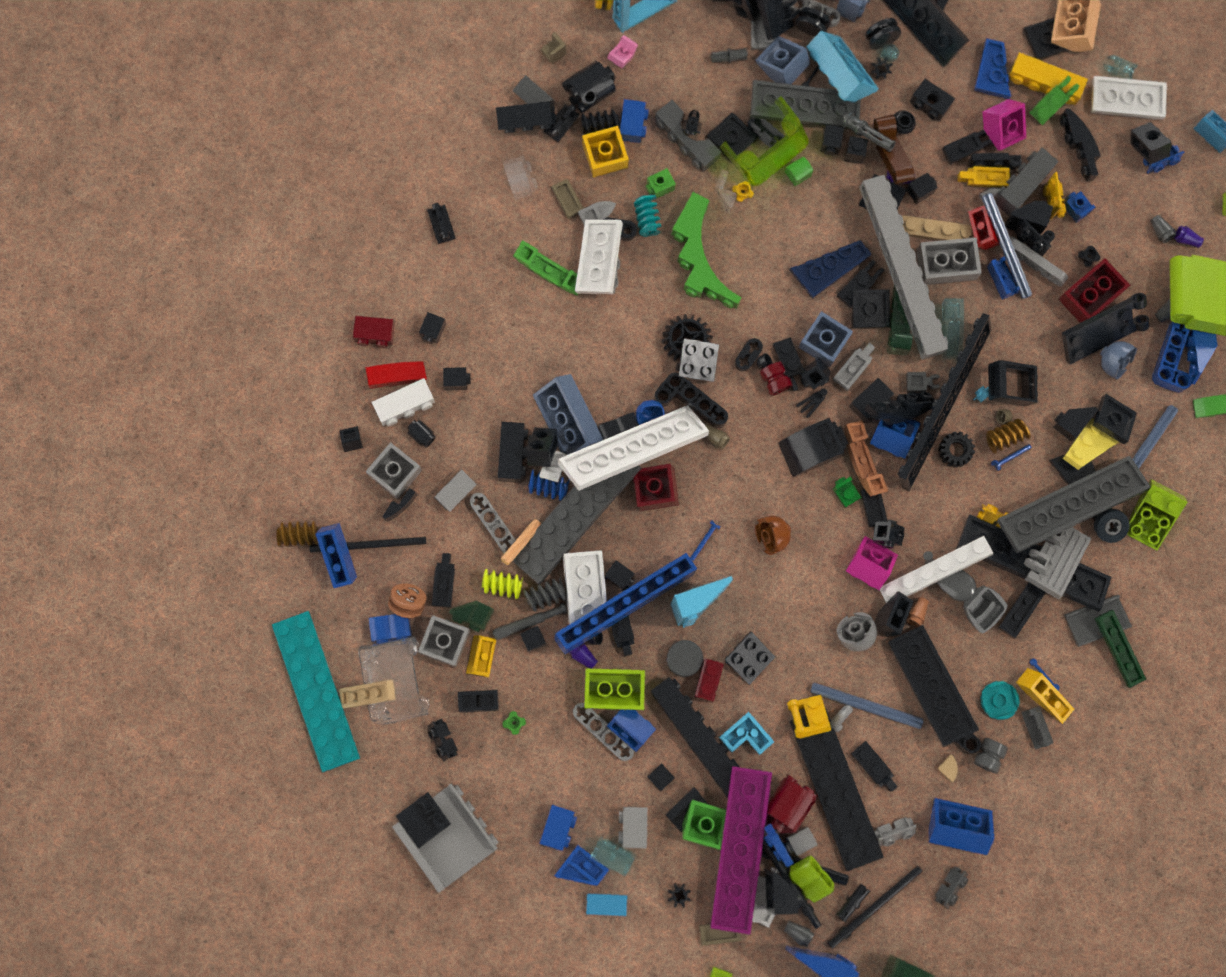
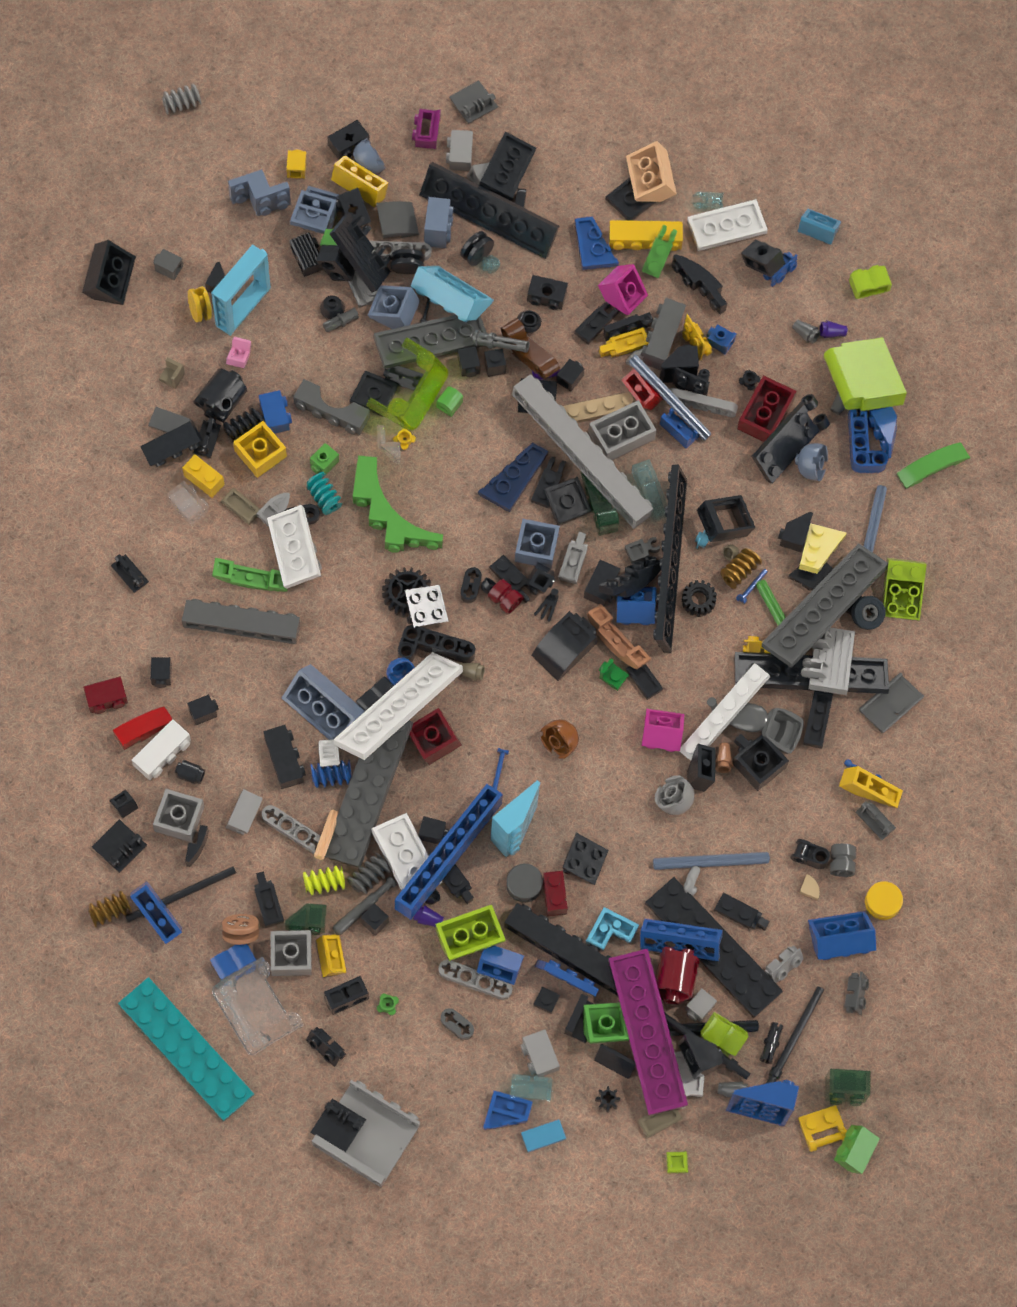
camera: 20 degrees left, 10 degrees down
(331, 477) = (119, 846): none -> black hinge
(367, 694) = (238, 1026): tan plate -> none
(524, 309) = (241, 621): none -> dark grey brick
(541, 447) = (310, 739): black brick -> none
(543, 157) = (203, 476): none -> yellow brick
(557, 828) = (468, 1082): blue brick -> none
(574, 764) = (460, 1021): none -> dark grey beam
(687, 765) = (571, 977): none -> blue wing
(691, 125) = (332, 394): black hinge -> none
(700, 862) = (615, 1061): none -> black slope
(726, 39) = (332, 306): none -> black cone
(773, 840) = (679, 1012): blue wing -> none
(809, 769) = (681, 935): none -> blue fence
(815, 714) = (666, 884): yellow plate -> none
(880, 62) = (491, 284): black gear -> none
(888, 534) = (667, 696): black brick -> none
(933, 686) = (764, 817): black plate -> none
(955, 618) = (760, 749): none -> black hinge
(994, 703) = (827, 813): teal tile -> none
(1013, 809) = (883, 900): none -> yellow head
(1023, 480) = (770, 601): none -> bright green axle
(1115, 419) = (832, 516): black plate -> none
(1120, 648) = (921, 719): dark green tile -> none

